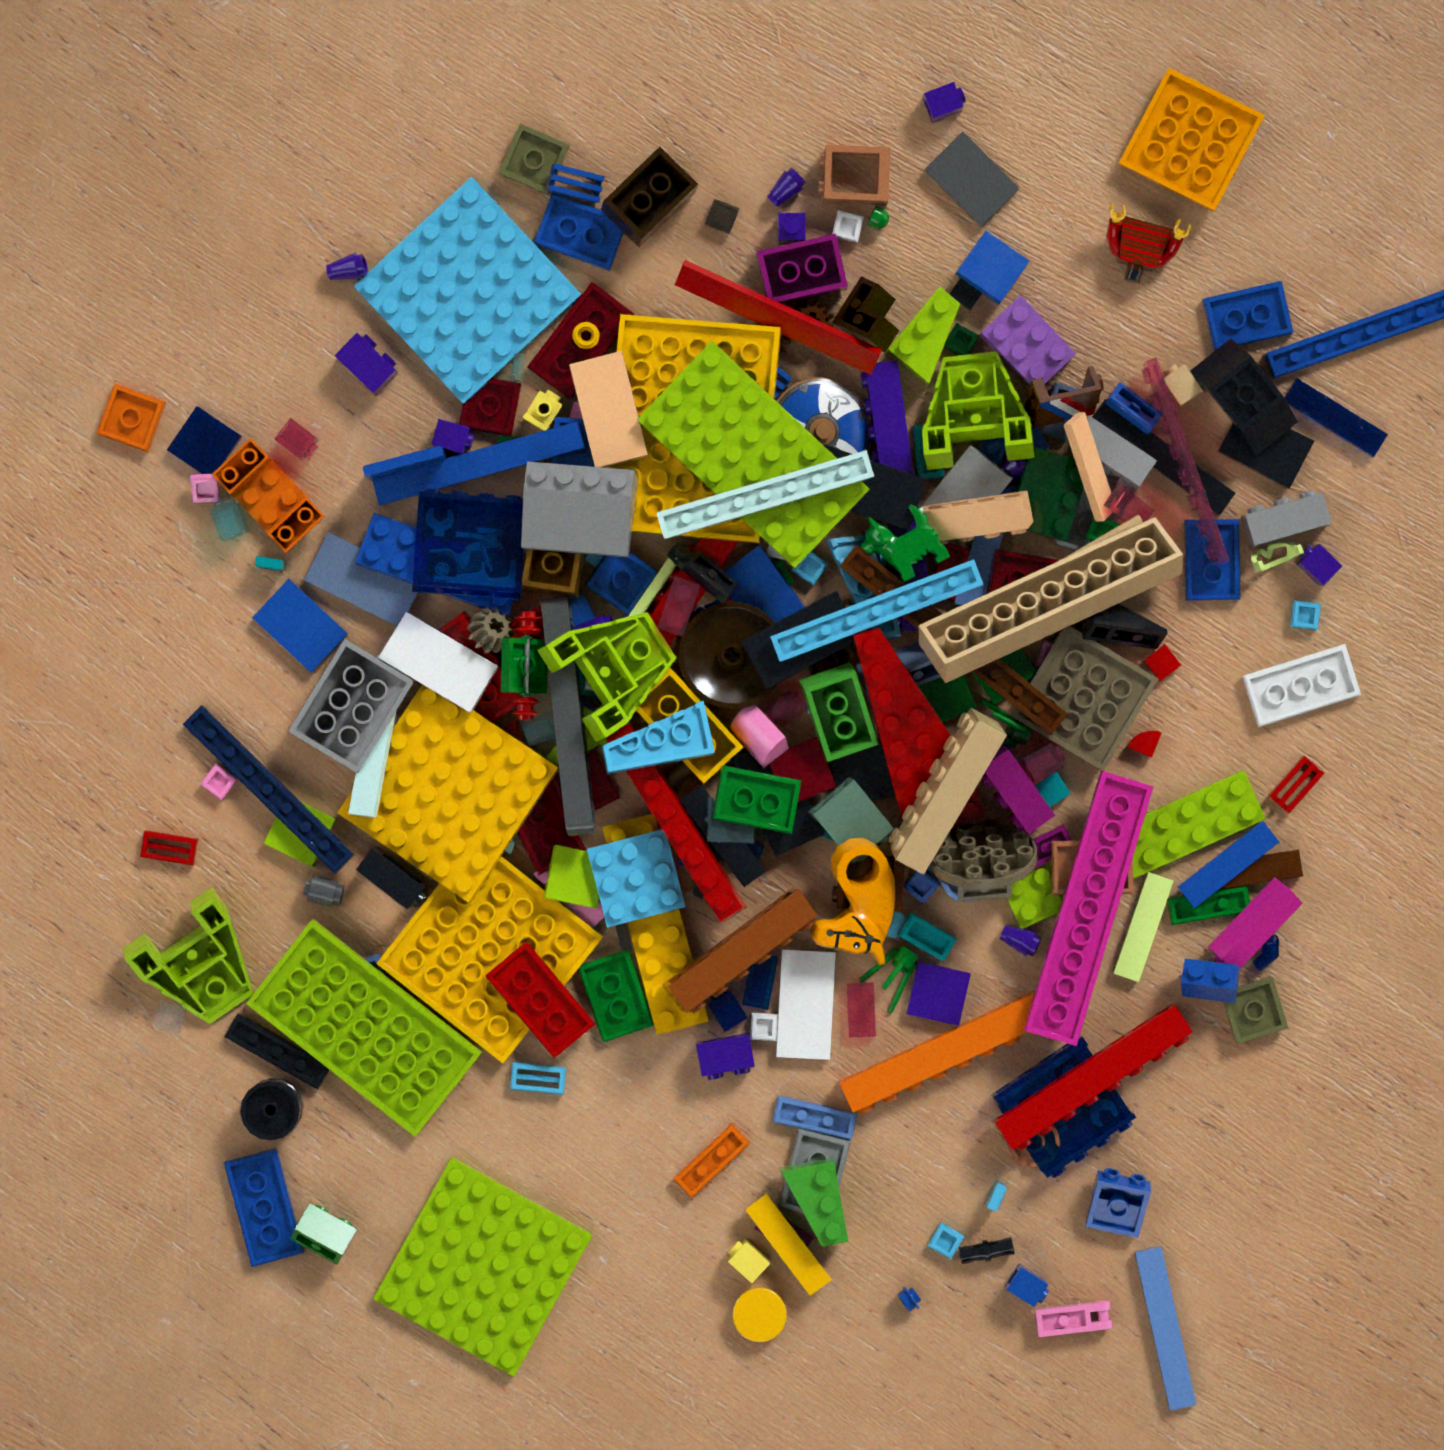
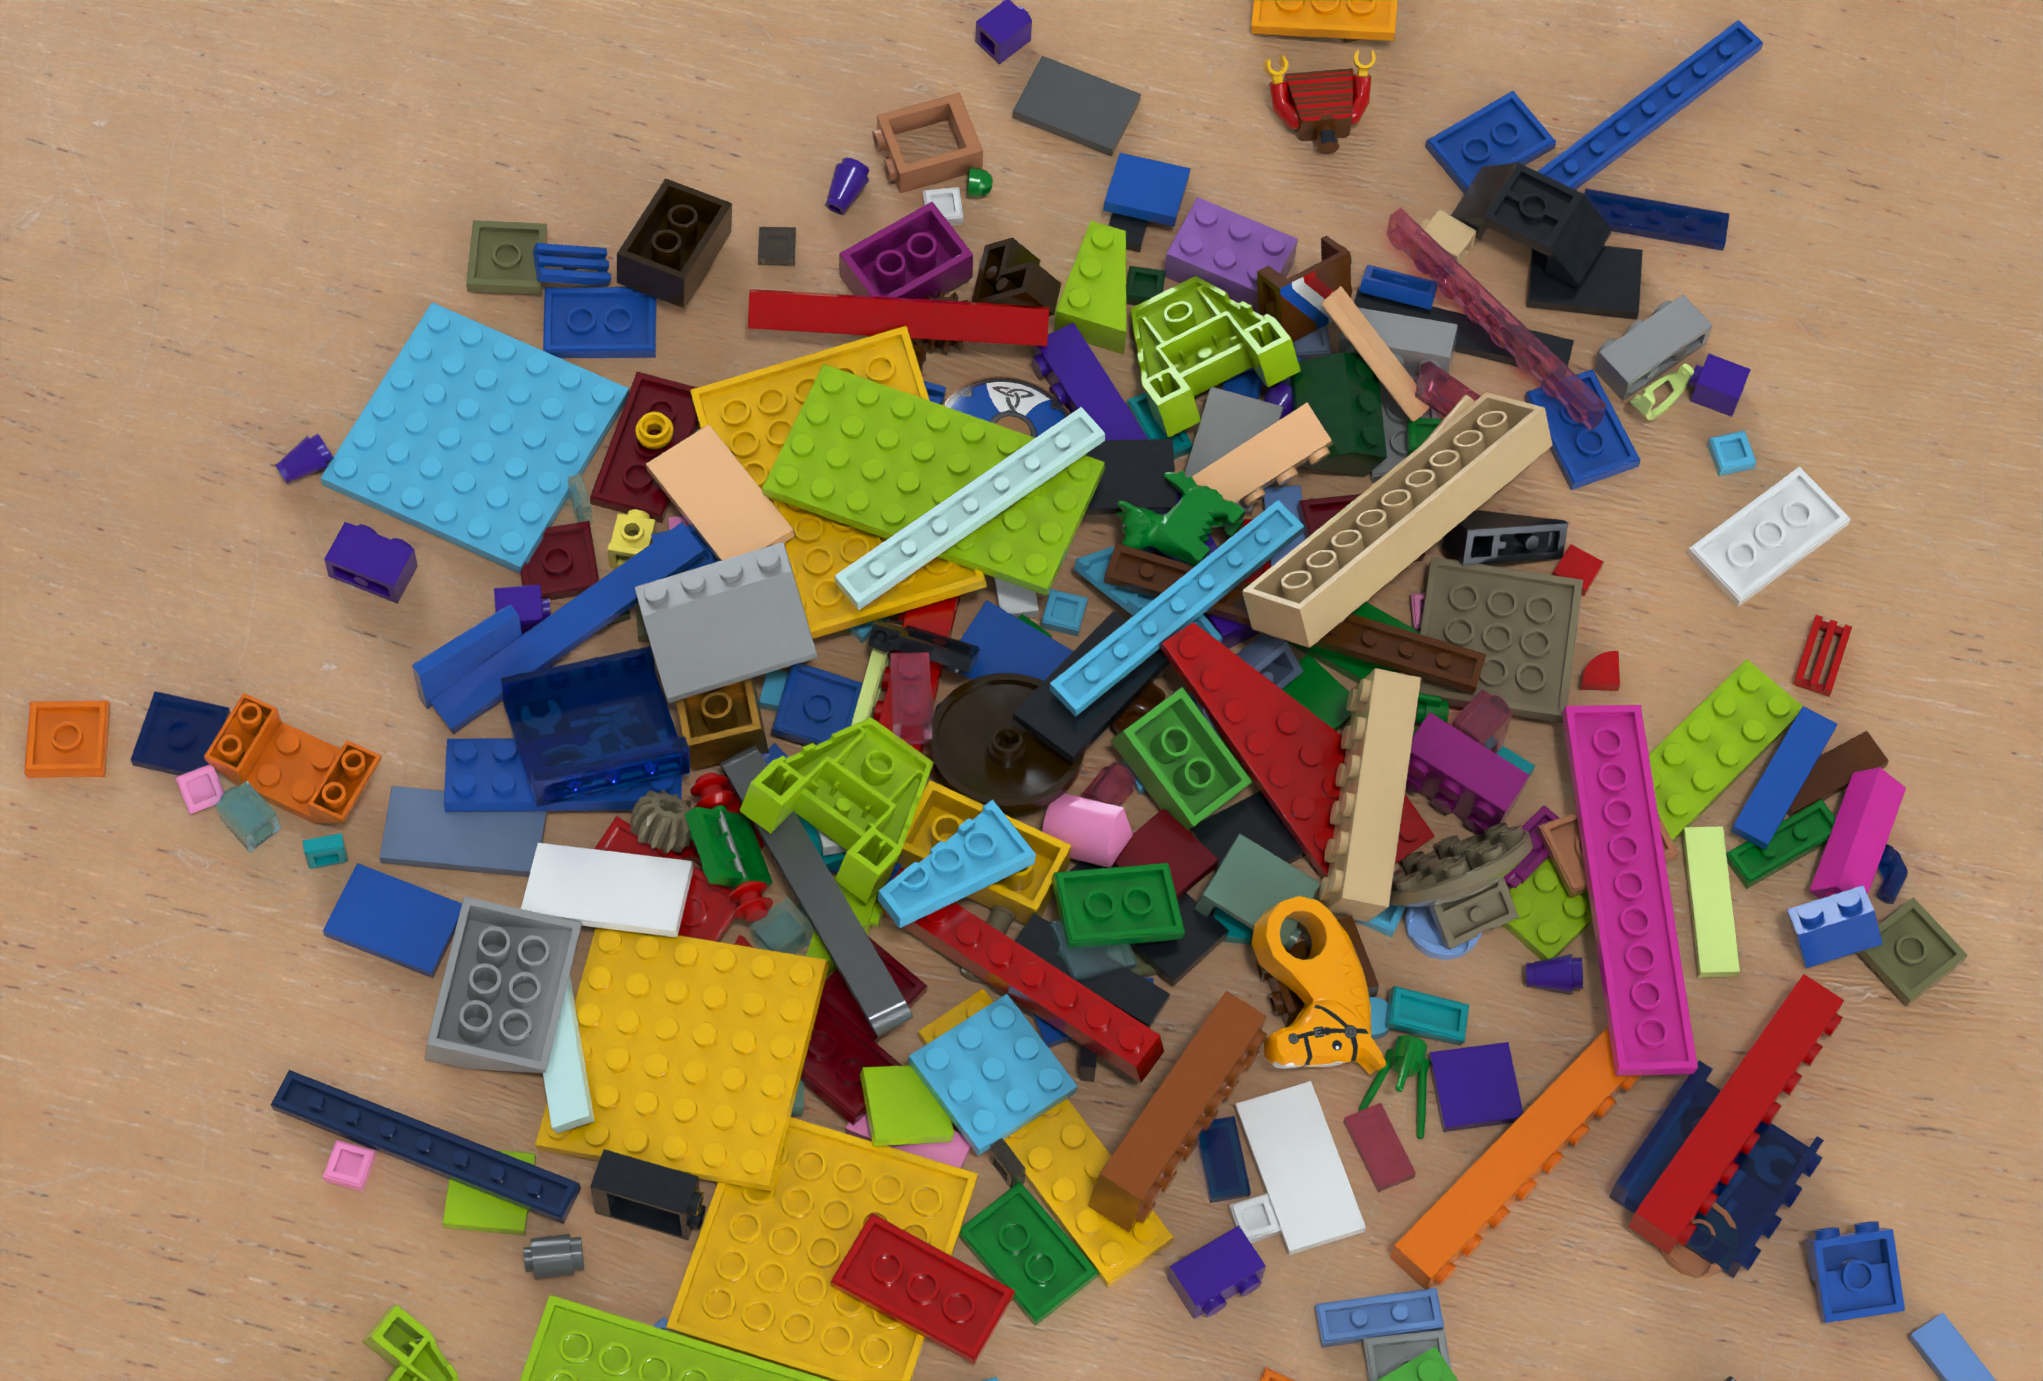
camera: 25 degrees left, 25 degrees down
(191, 851) = (311, 1296): red tile -> none
(297, 440) = (308, 684): clear pink brick -> none
(727, 1010) = (1193, 1209): clear blue brick -> none
(791, 228) = (869, 217): dark purple brick -> none
(922, 885) = (1390, 951): blue tile -> none
(996, 1196) = (1681, 1326): medium azure tile -> none

